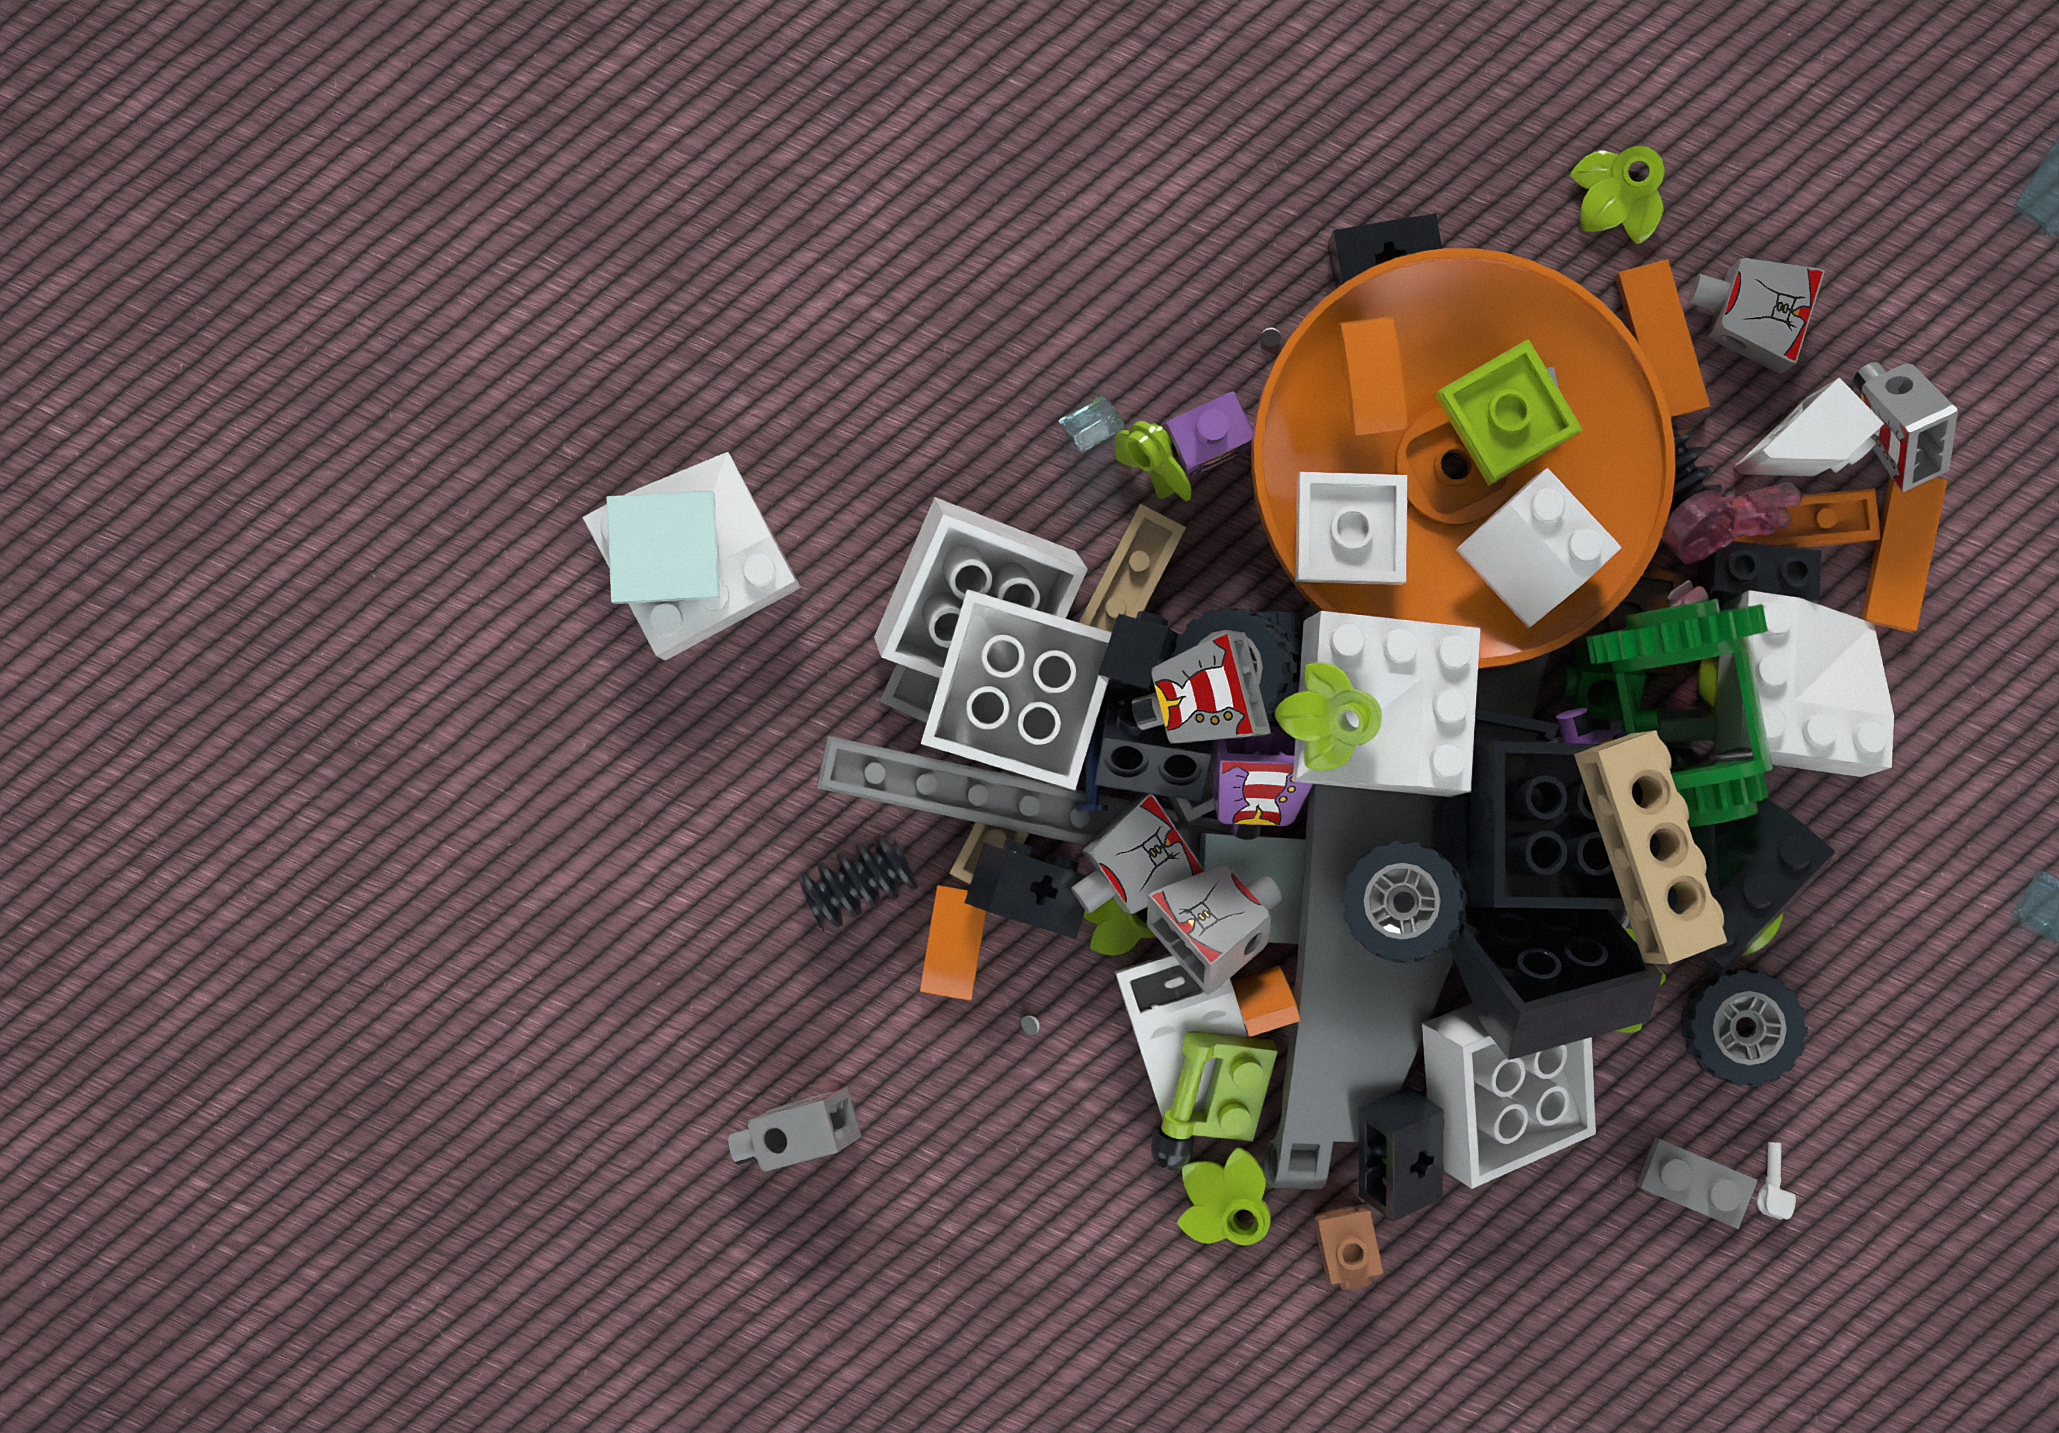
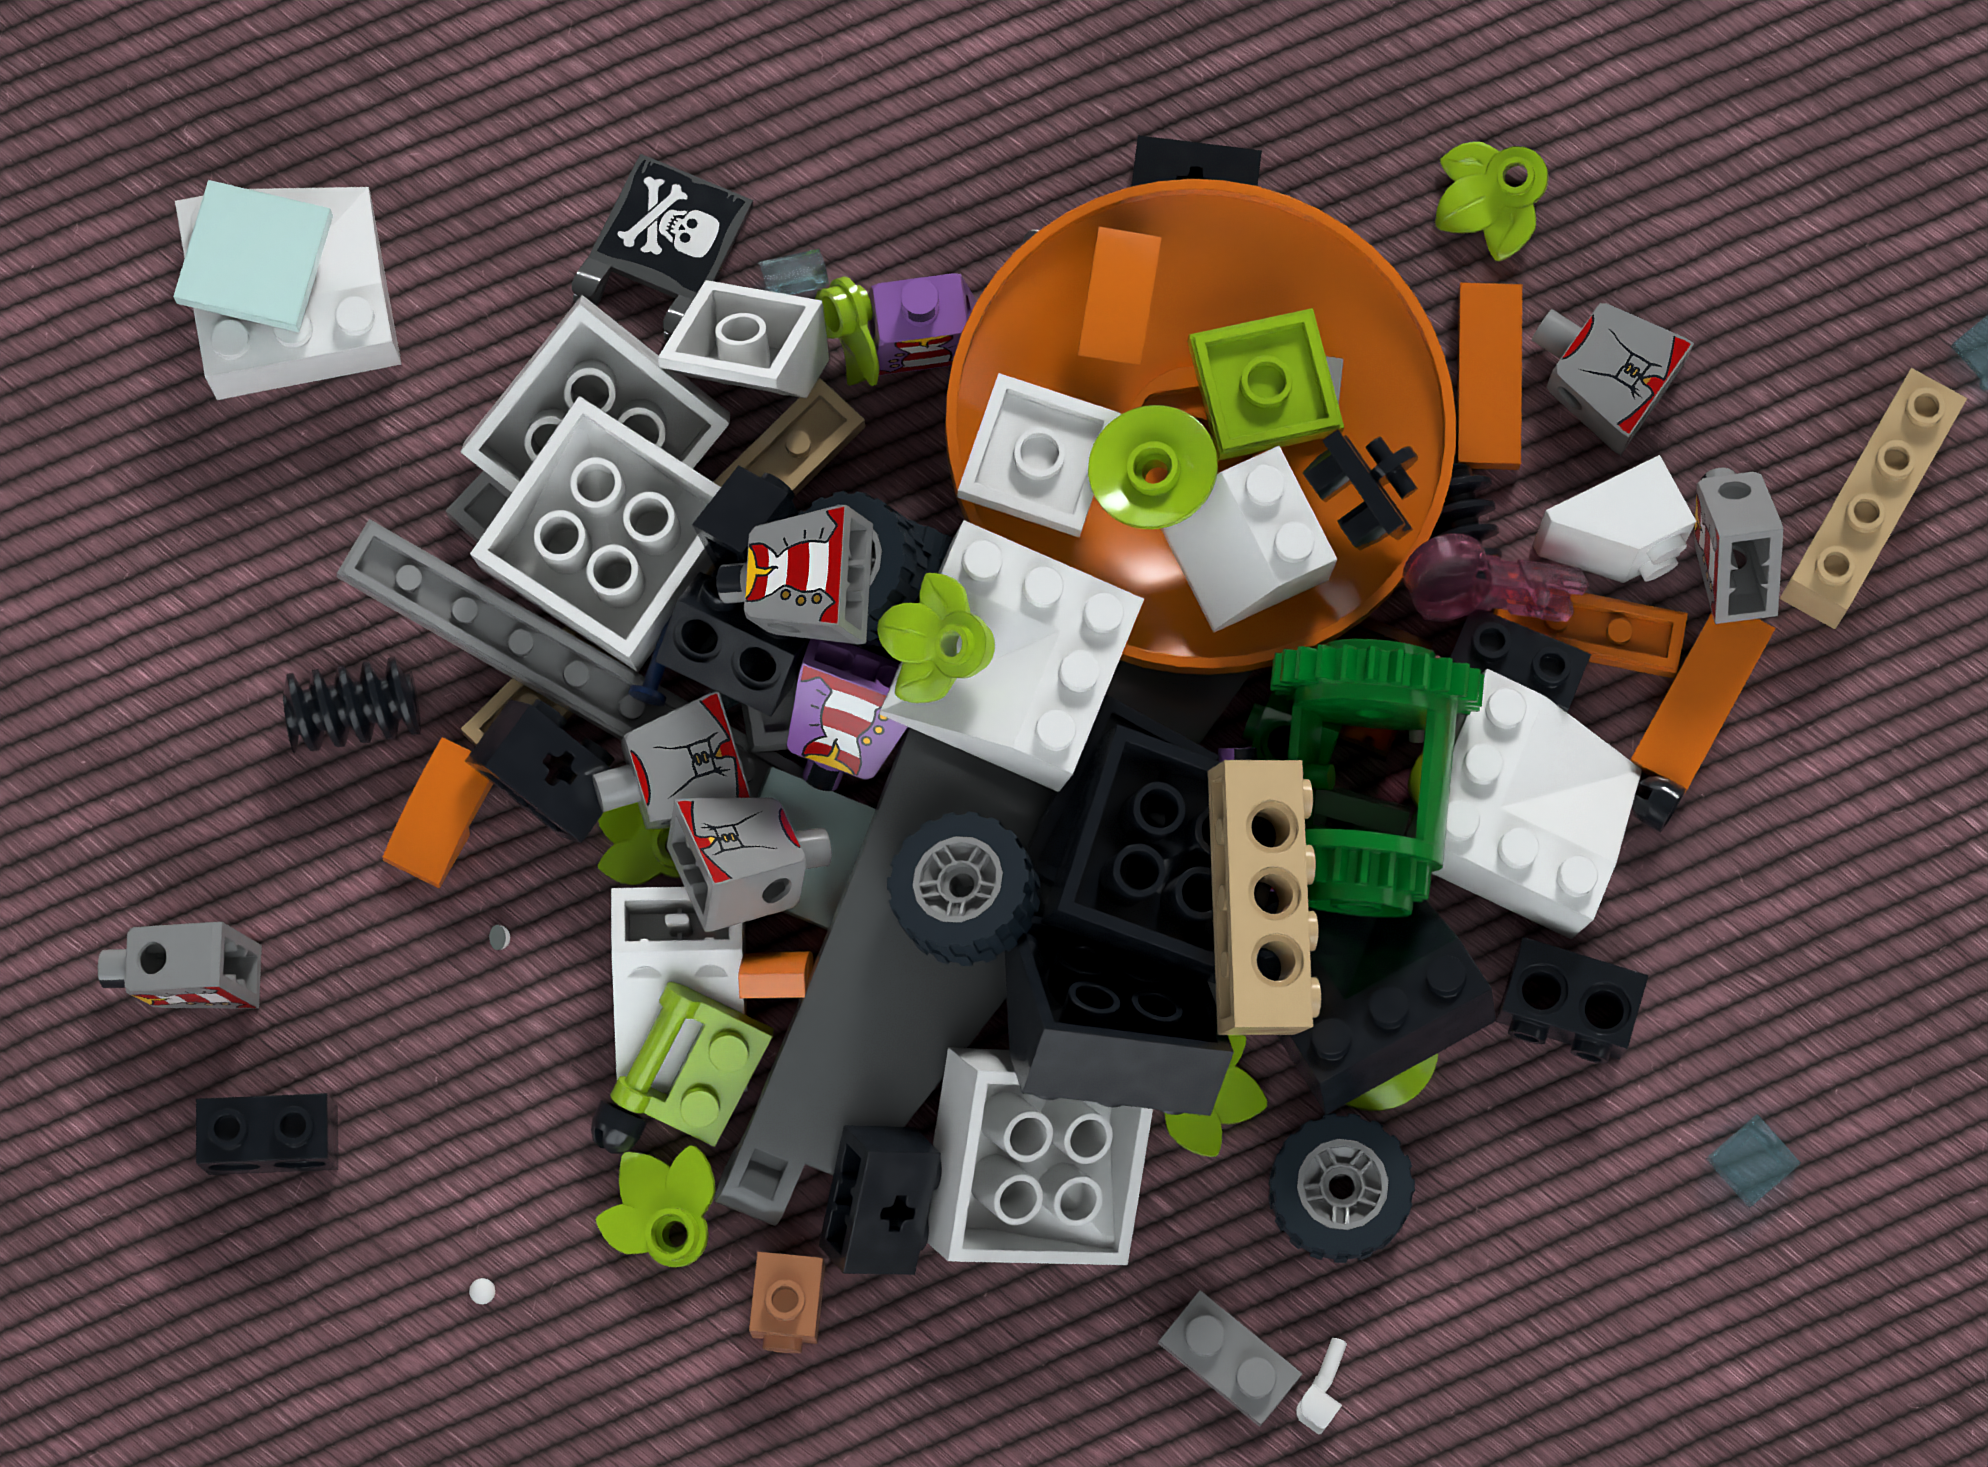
camera: 15 degrees right, 10 degrees down
(905, 1241) = (267, 1134): none -> black brick
(979, 420) = (665, 235): none -> flag
(1080, 495) = (750, 340): none -> white slope
(1106, 1303) = (482, 1291): none -> white piece
(1446, 487) = (1147, 440): none -> lime dish
(1633, 494) = (1345, 466): none -> black hips
(1877, 820) = (1574, 983): none -> black brick
(1899, 647) = (1661, 803): none -> black hinge
(1998, 349) = (1873, 498): none -> tan brick

